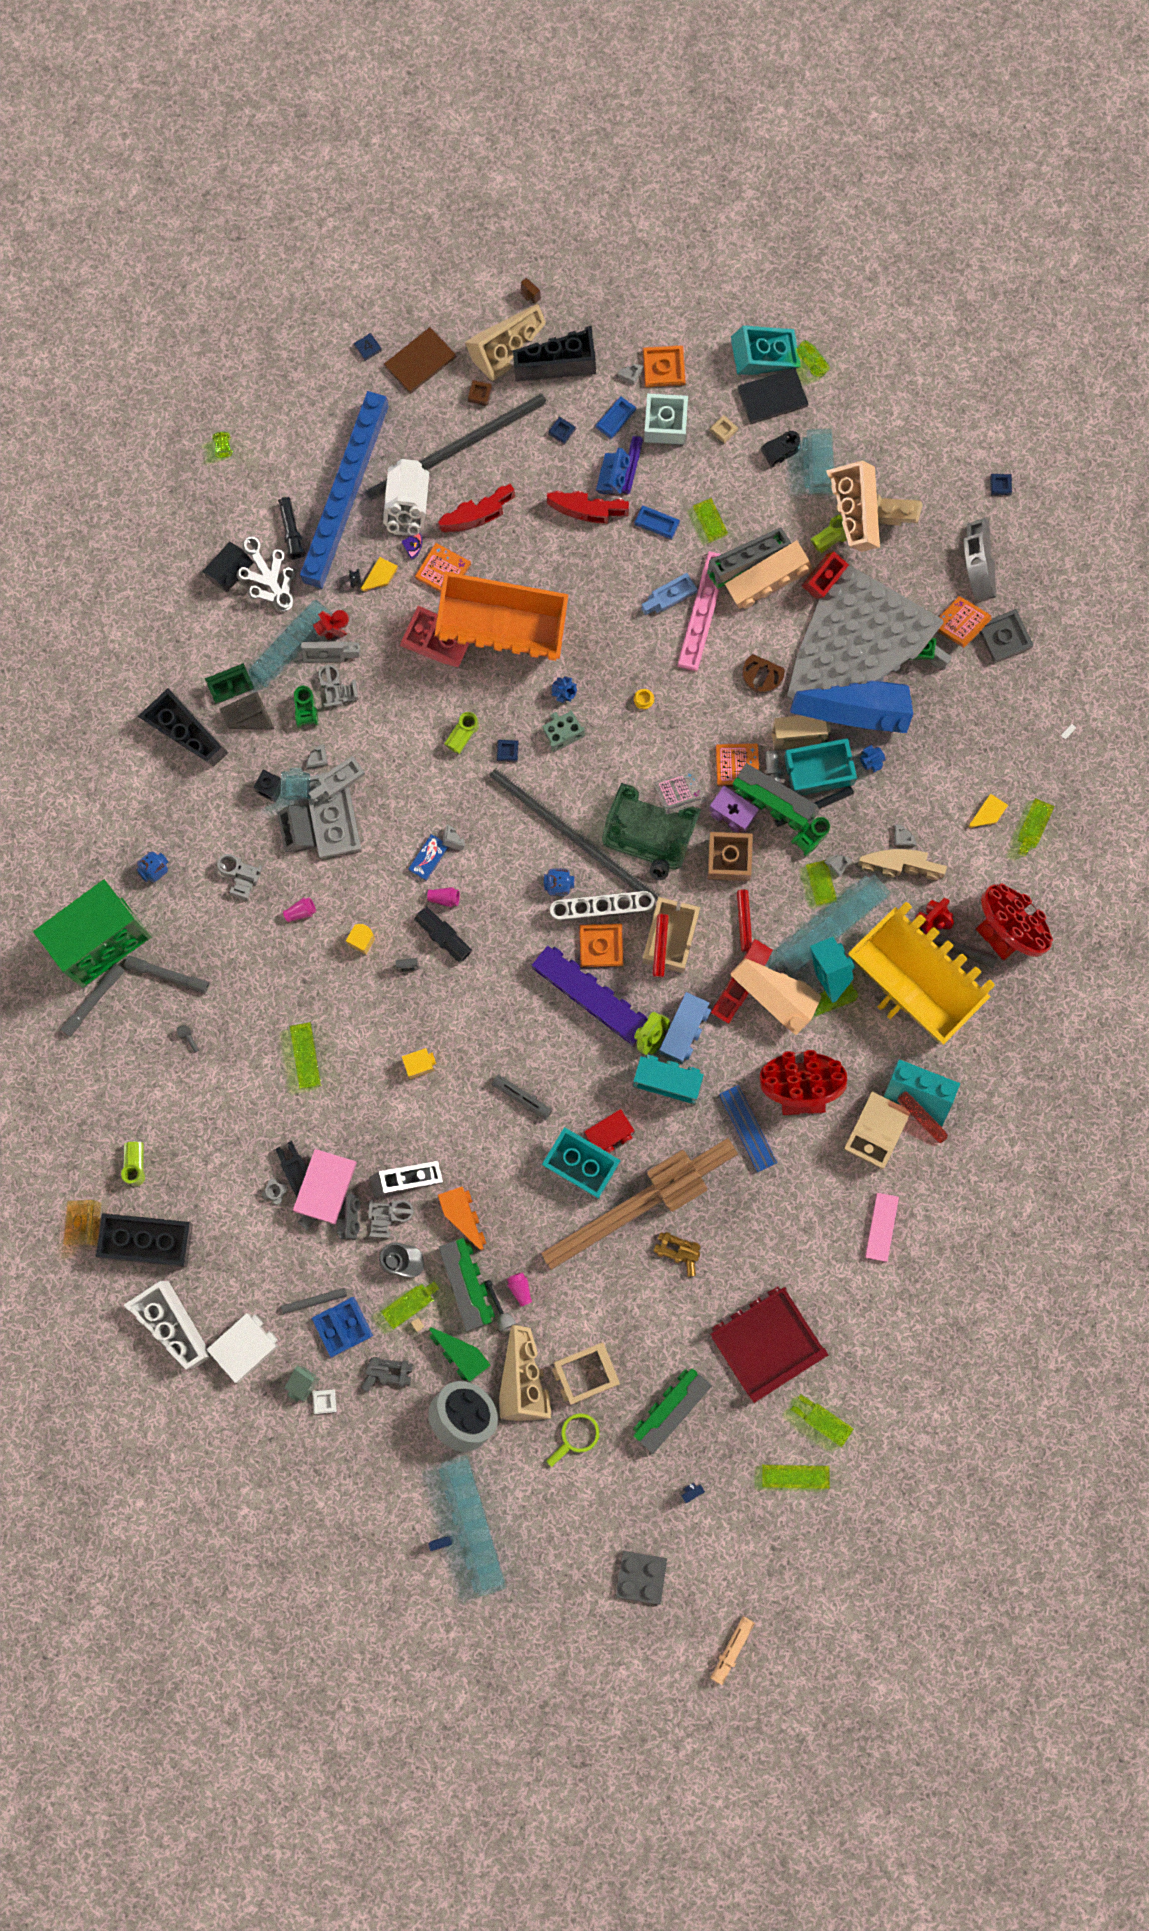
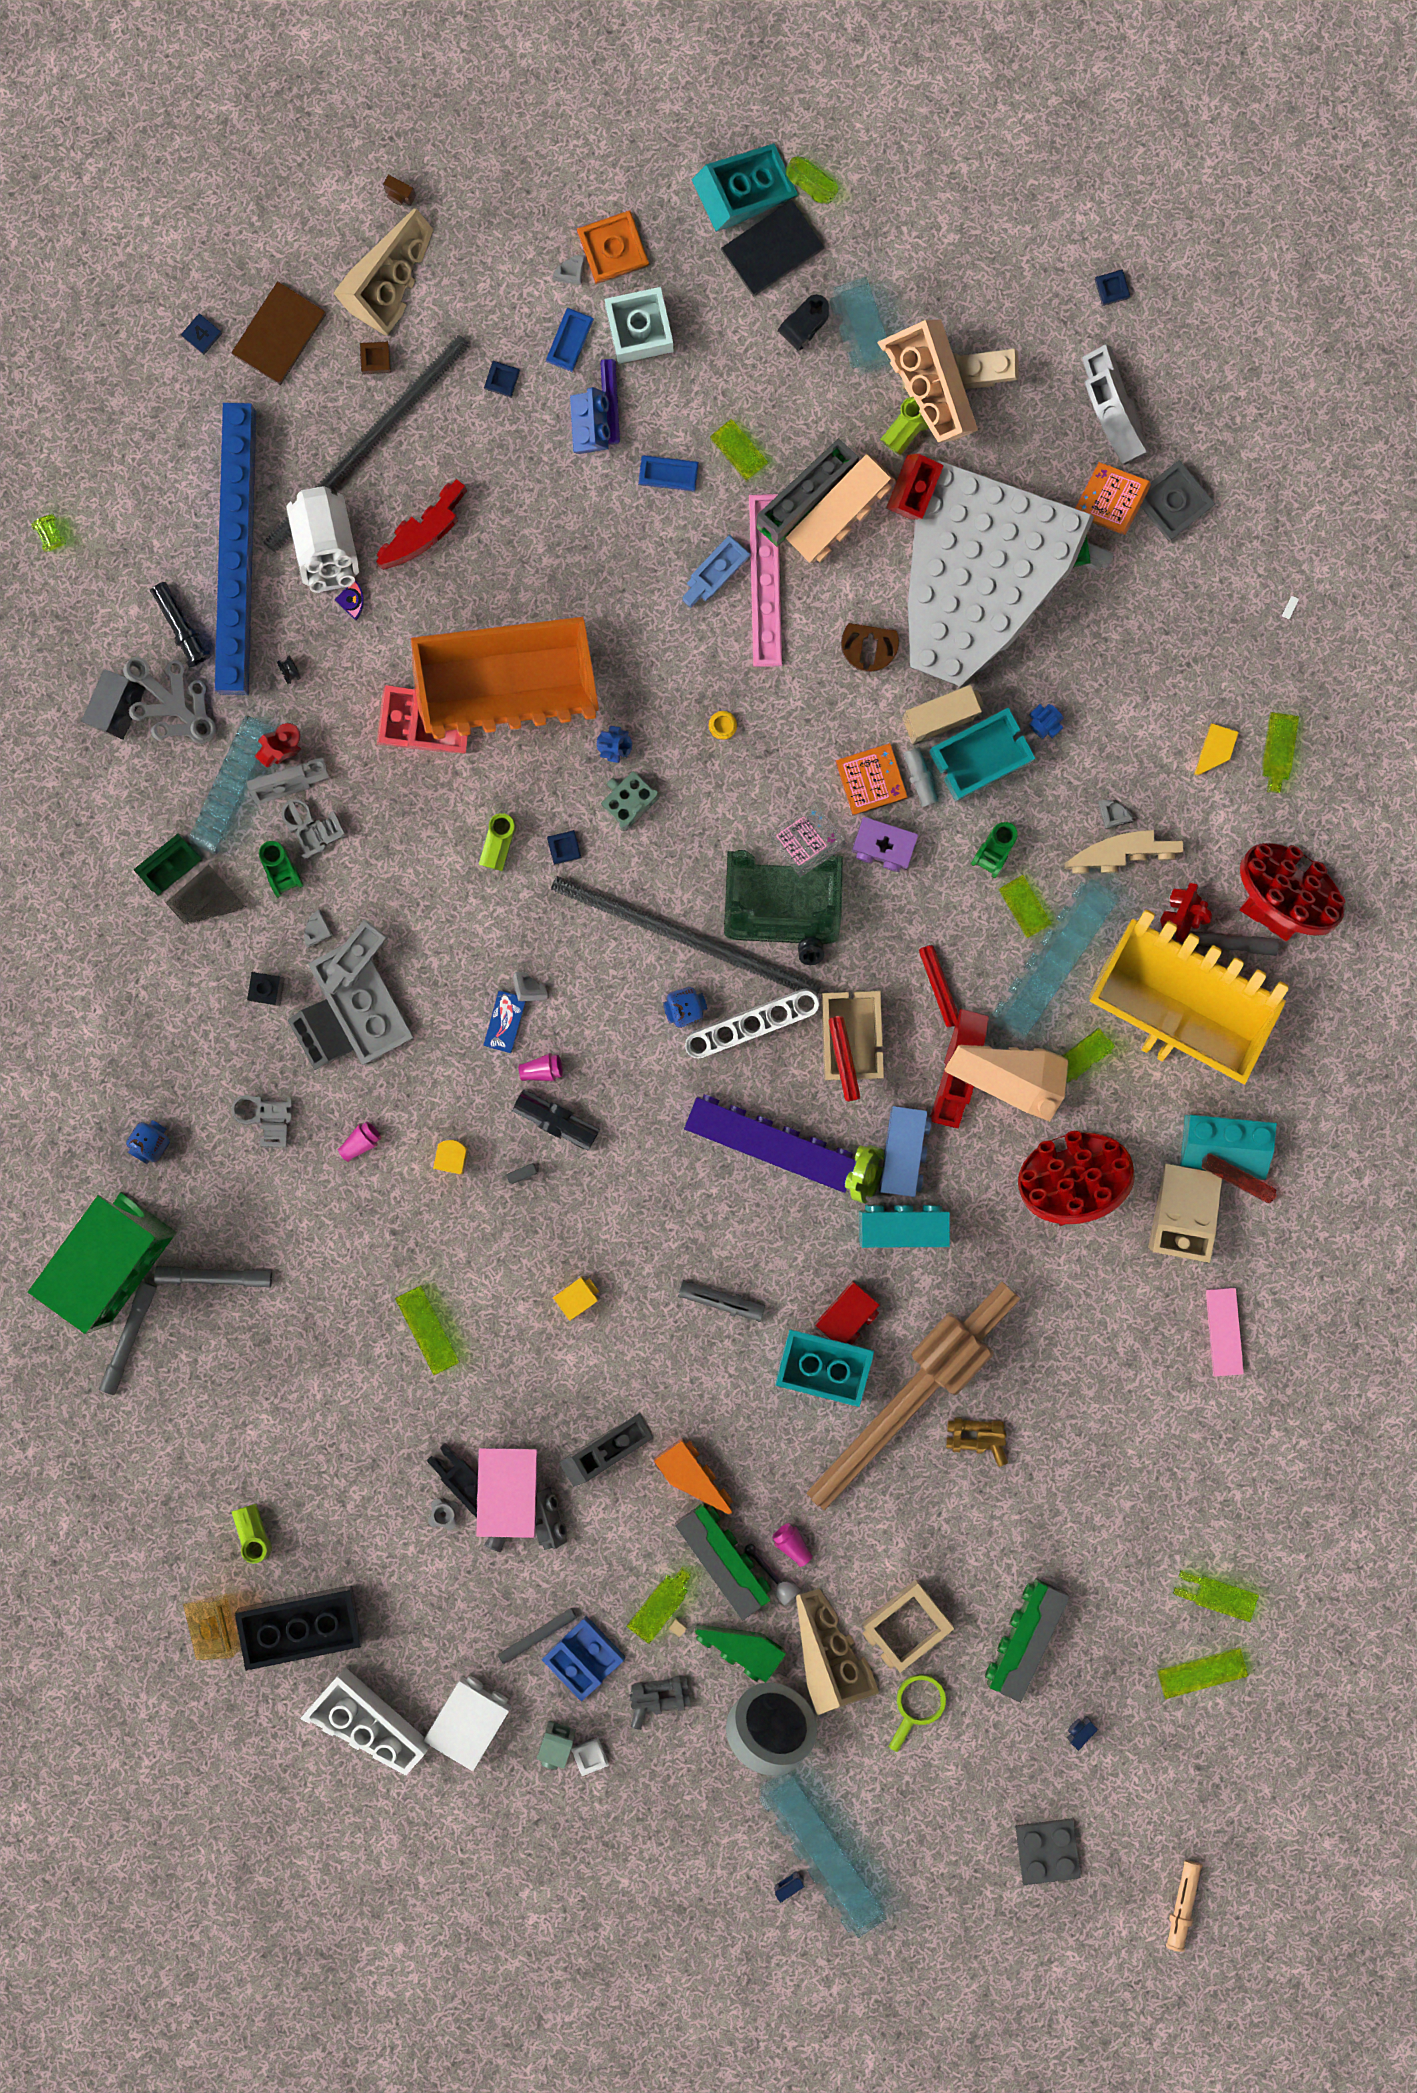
camera: 25 degrees left, 10 degrees up
(179, 723) = (127, 943): black wedge -> none
(184, 1031) = (262, 1344): dark grey hand -> none
(295, 784) = (300, 978): clear light blue brick -> none
(380, 575) = (320, 654): yellow tile -> none
(382, 1216) = (590, 1501): light grey piece -> none
(401, 1260) = (633, 1554): dark grey cap -> none
(438, 561) = (399, 619): orange tile -> none
(557, 357) = (466, 278): black wedge -> none
(578, 507) = (556, 483): red slope -> none
(601, 945) = (764, 1072): orange tile -> none
(723, 429) = (719, 315): tan tile -> none
(730, 856) = (898, 908): medium nougat brick -> none
(748, 1128) = (1020, 1256): blue tile -> none
(768, 1344) = (1123, 1522): dark red panel -> none
(775, 797) = (935, 814): piece -> none
(825, 802) = (986, 806): black bar -> none
(832, 967) = (1072, 1020): teal slope -> none
(838, 864) = (1040, 875): light grey tile -> none
(866, 705) = (1022, 660): blue wedge -> none

